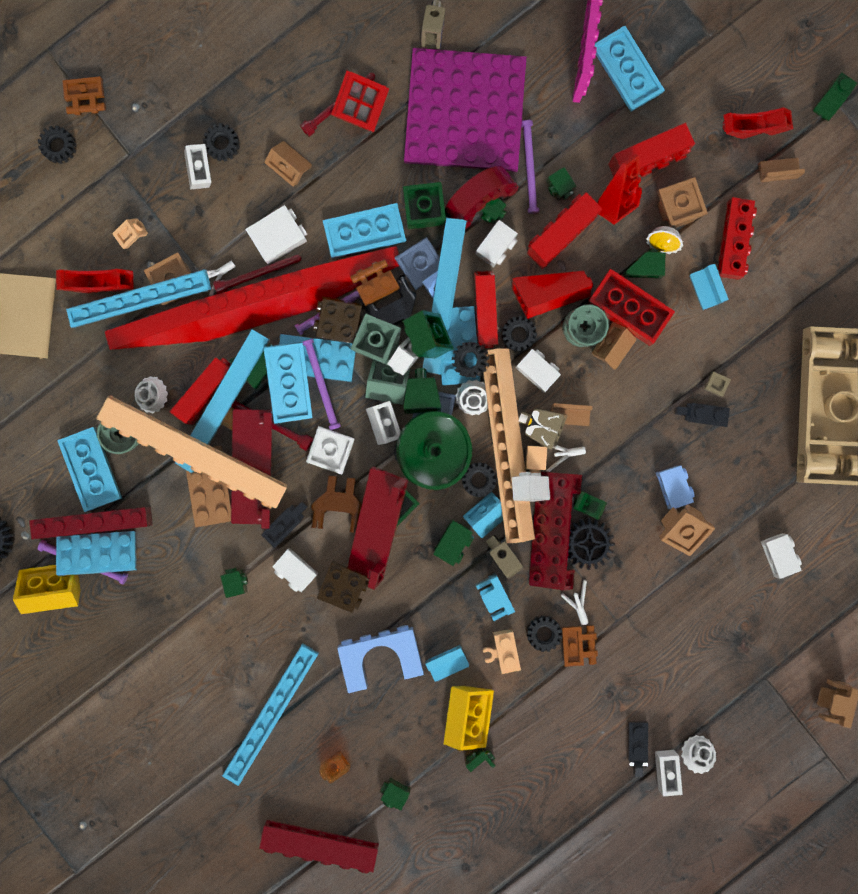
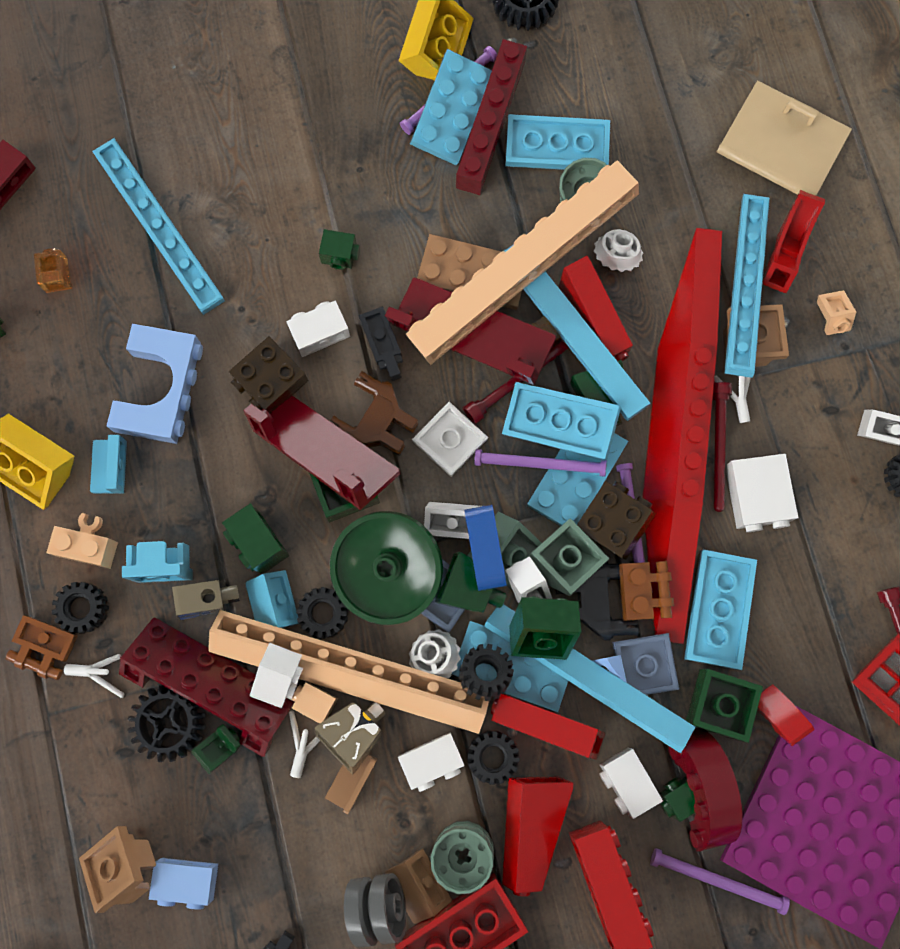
camera: 115 degrees right, 10 degrees down
(287, 163) = (852, 548): medium nougat panel -> none
(394, 393) = (485, 547): none -> blue beam
(414, 166) = (784, 715): none -> red slope
(561, 184) = (677, 915): dark green brick -> none
(639, 364) = (375, 910): none -> dark grey wheel

